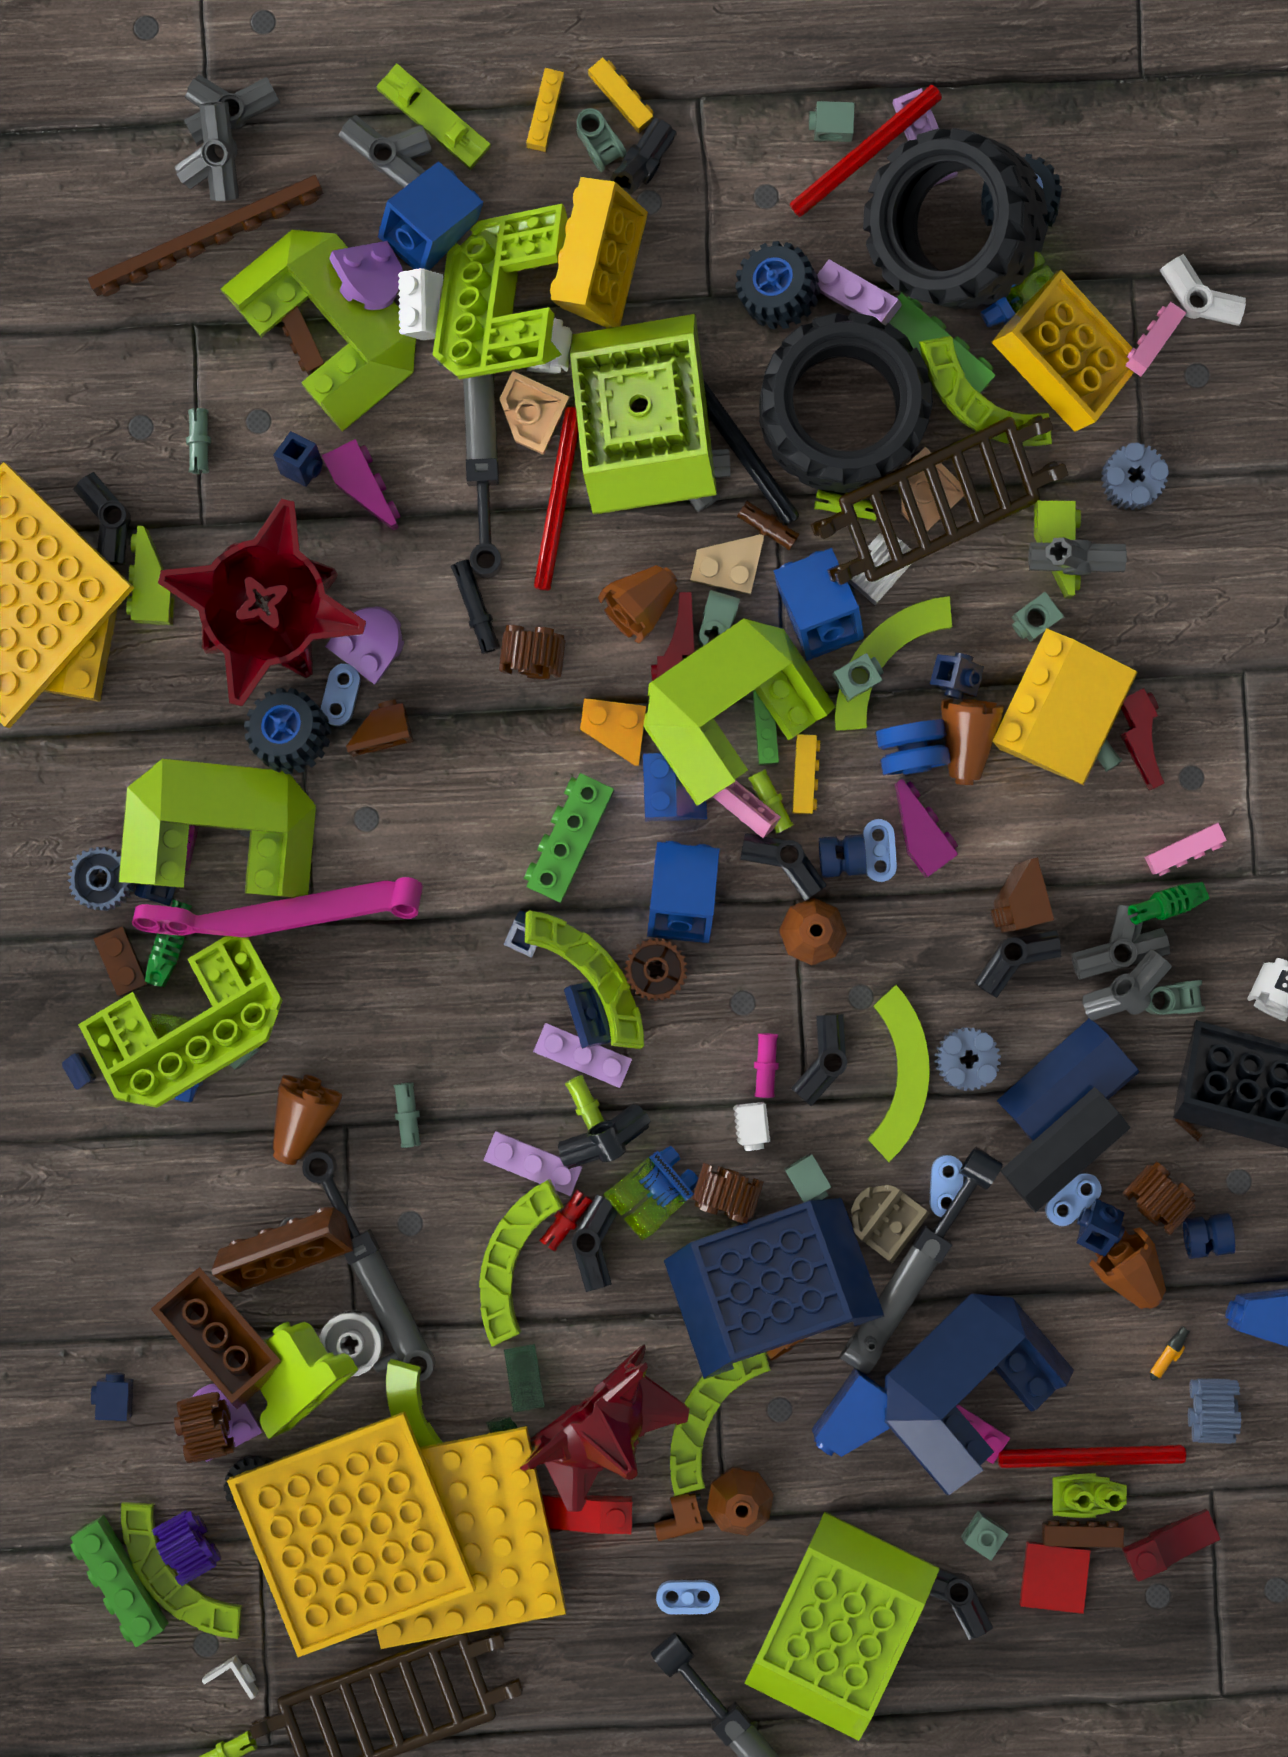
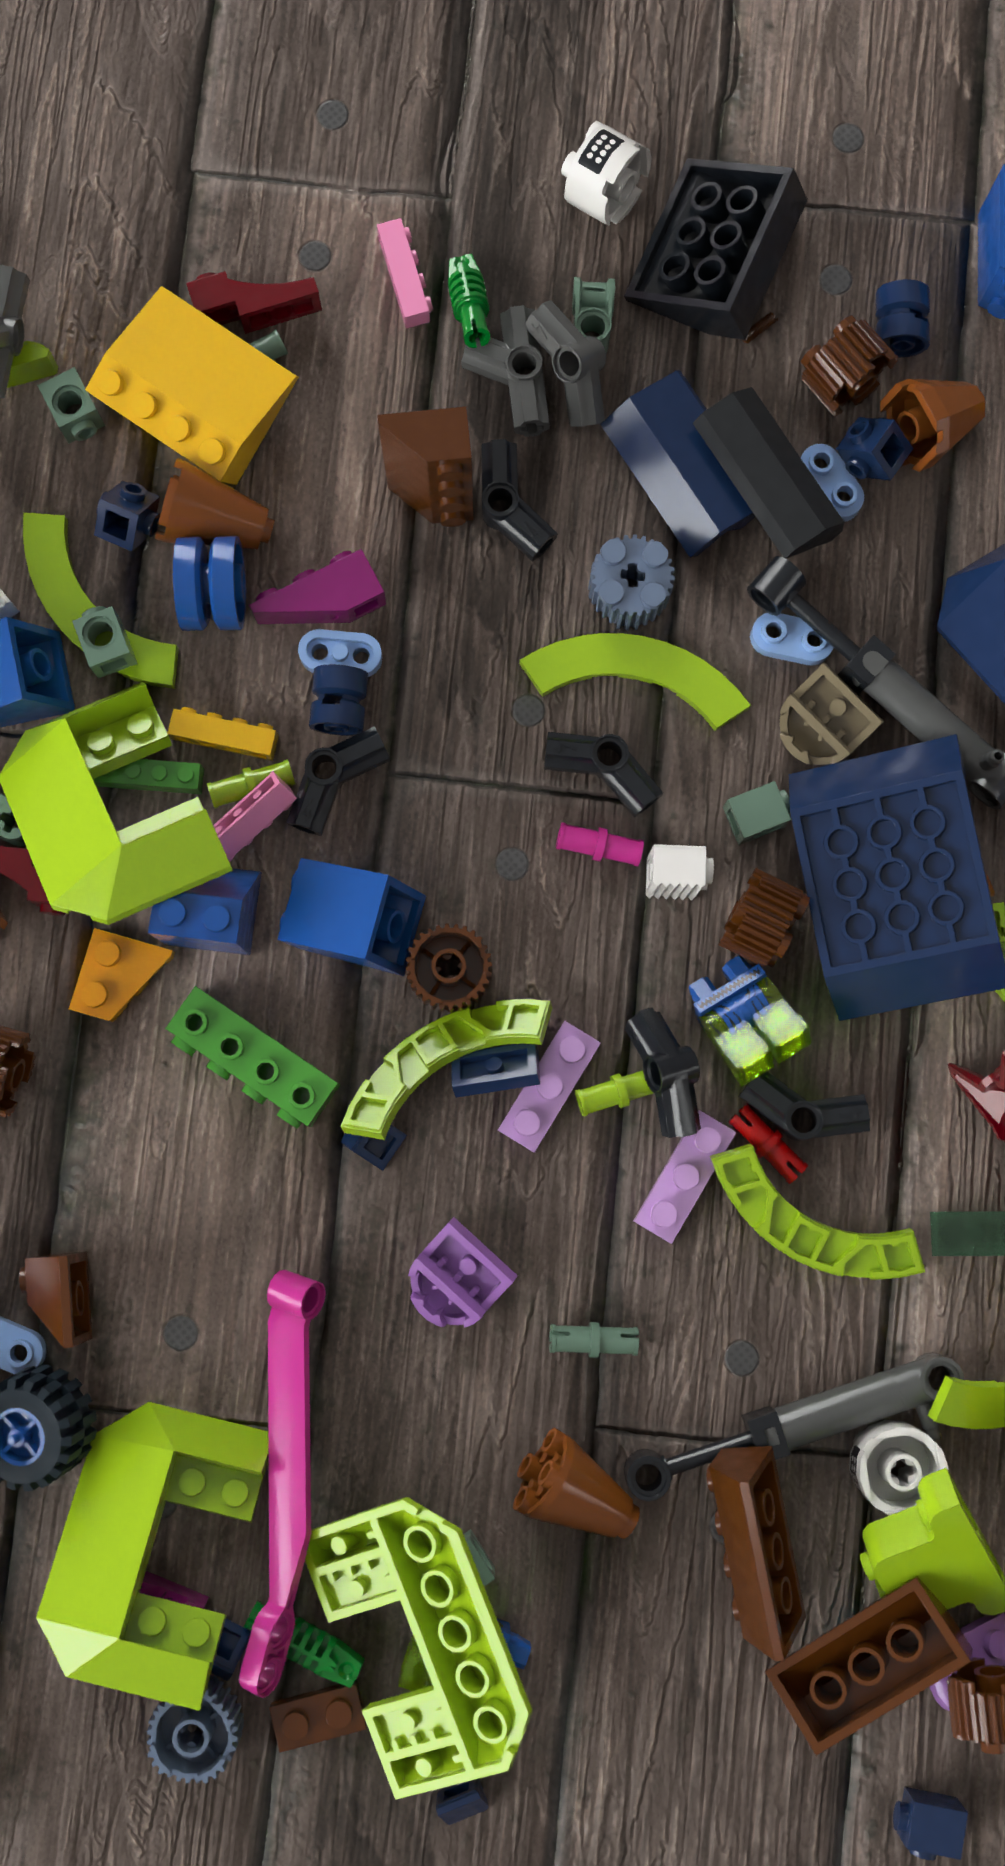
camera: 80 degrees left, 5 degrees down
(435, 1010) = (457, 1278): none -> medium lavender slope
(797, 936) = (432, 757): dark orange cone -> none

